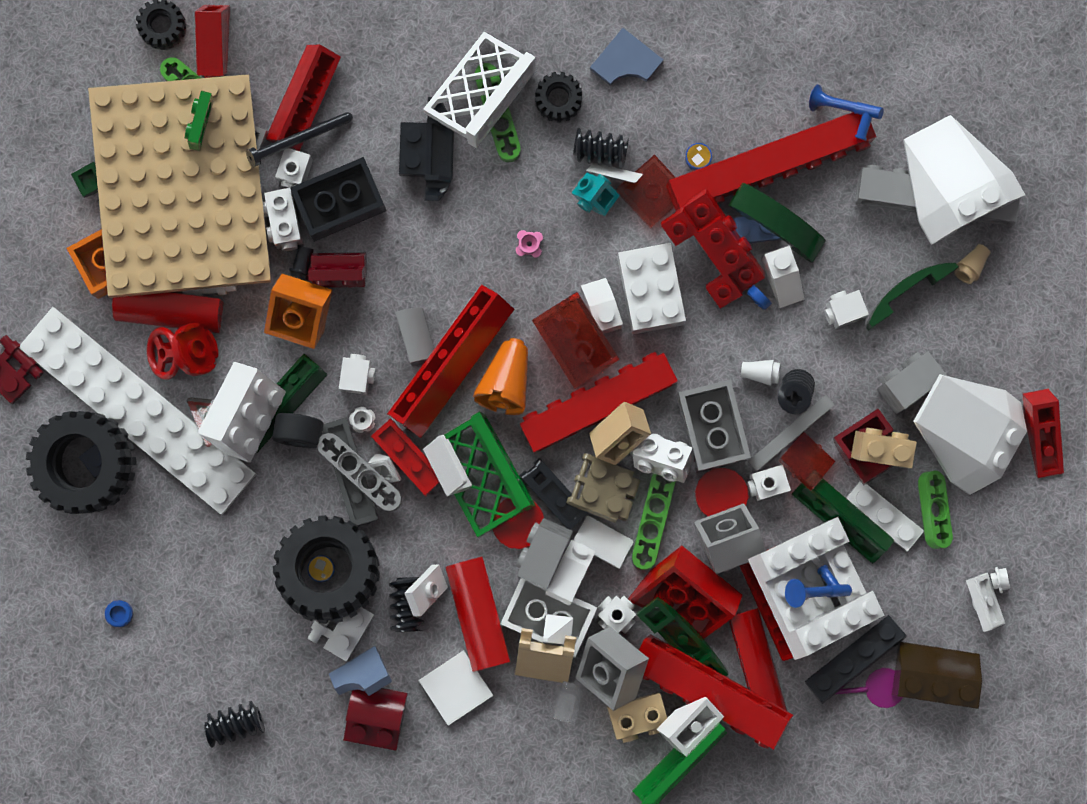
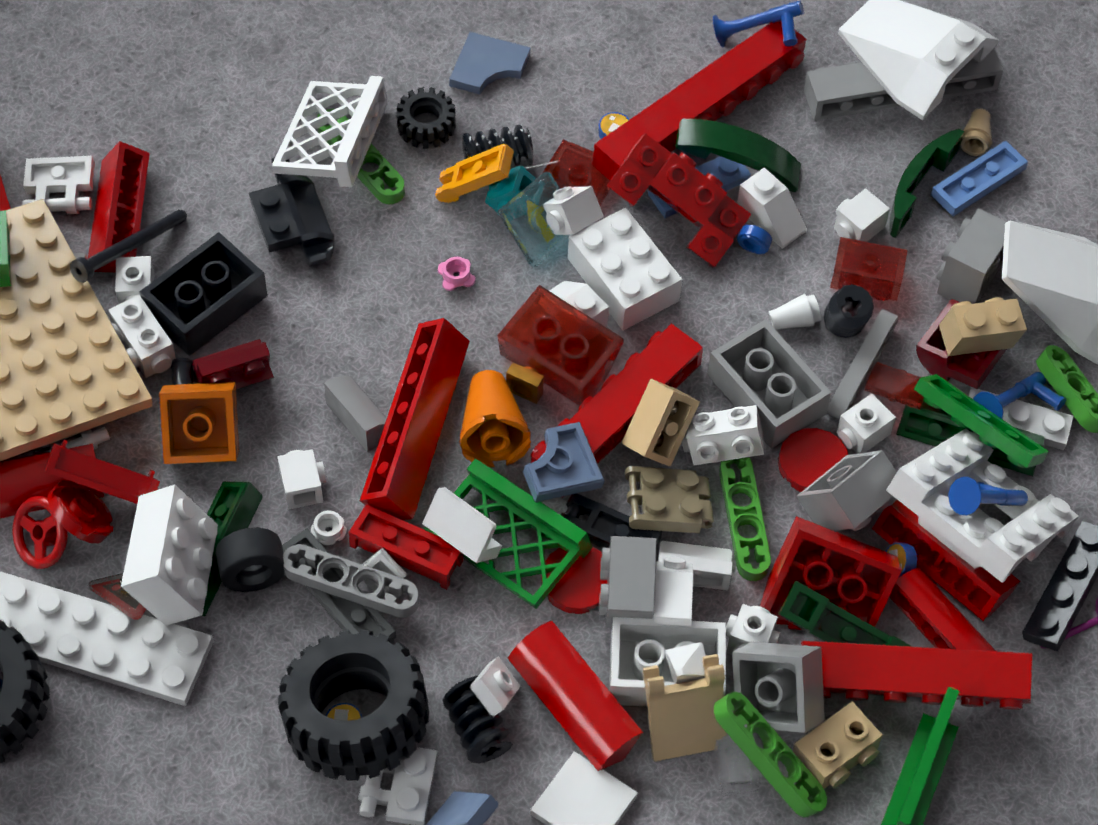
camera: 25 degrees left, 25 degrees down
(216, 329) = (99, 474): none -> red container
(269, 51) = (57, 176): none -> white plate
(538, 444) = (565, 466): none -> sand blue tile
(542, 356) = (525, 382): none -> pearl gold plate
(572, 170) = (474, 173): none -> light orange hinge
(585, 712) = (773, 751): none -> bright green beam
(605, 225) = (527, 220): none -> clear light blue tile
(629, 231) = (572, 210): none -> white brick
(690, 725) = (910, 714): white slope -> none
(749, 597) = (906, 556): none -> tile
(831, 356) = (871, 266): none -> clear red brick
(847, 521) = (991, 428): none -> green plate
(860, 511) = (1032, 384): none -> blue piece
(954, 305) = (979, 178): none -> medium blue plate

